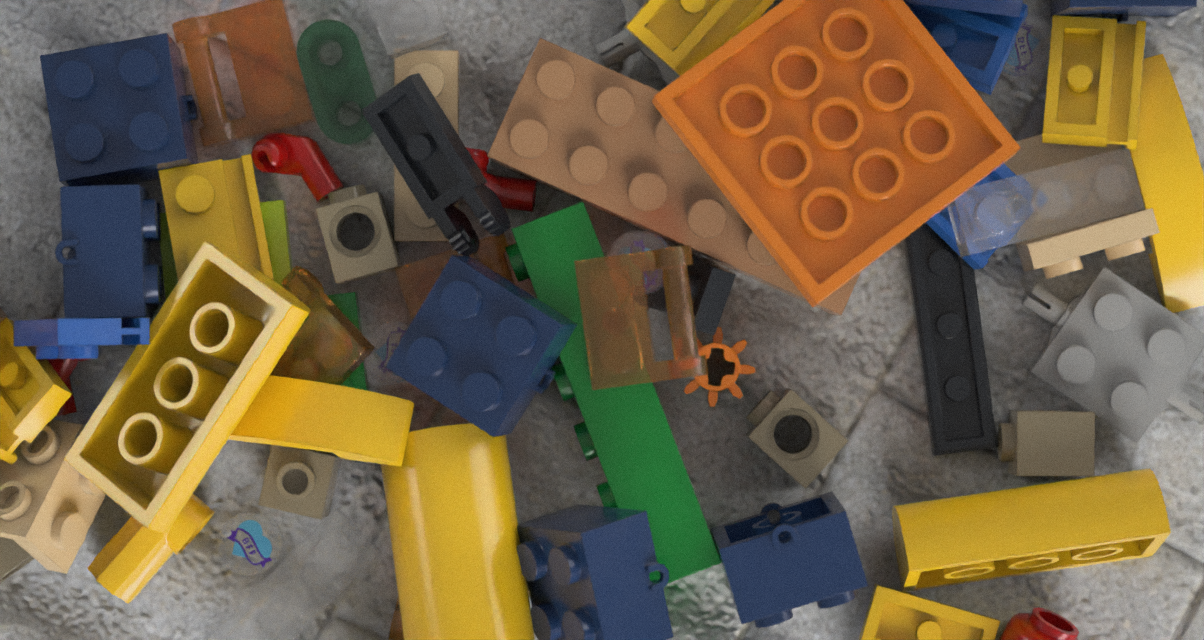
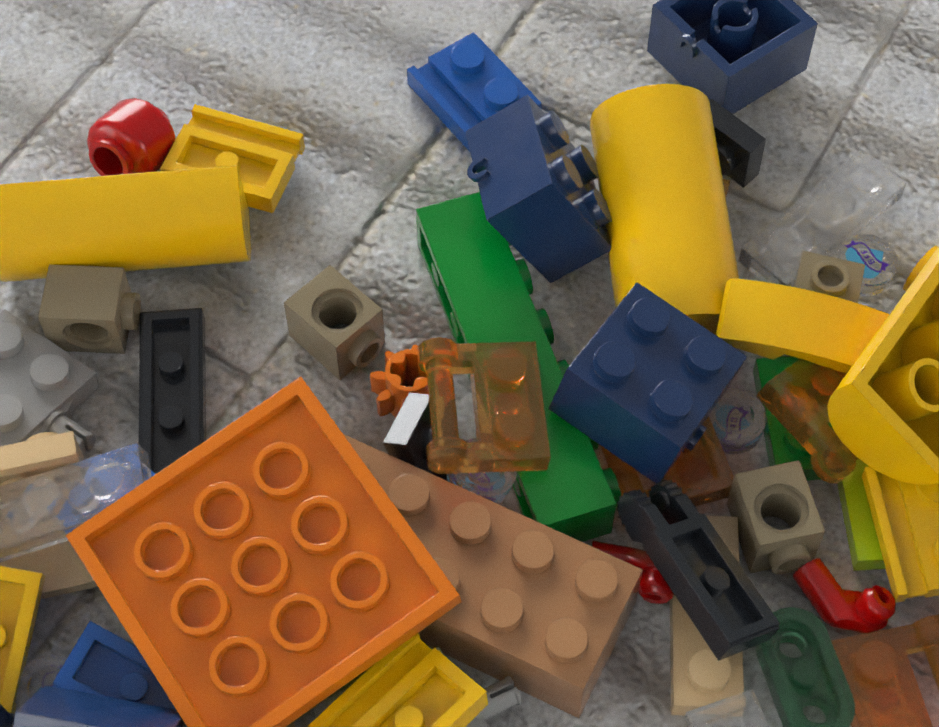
camera: 175 degrees left, 30 degrees down
(790, 561) = (353, 206): dark blue brick -> none

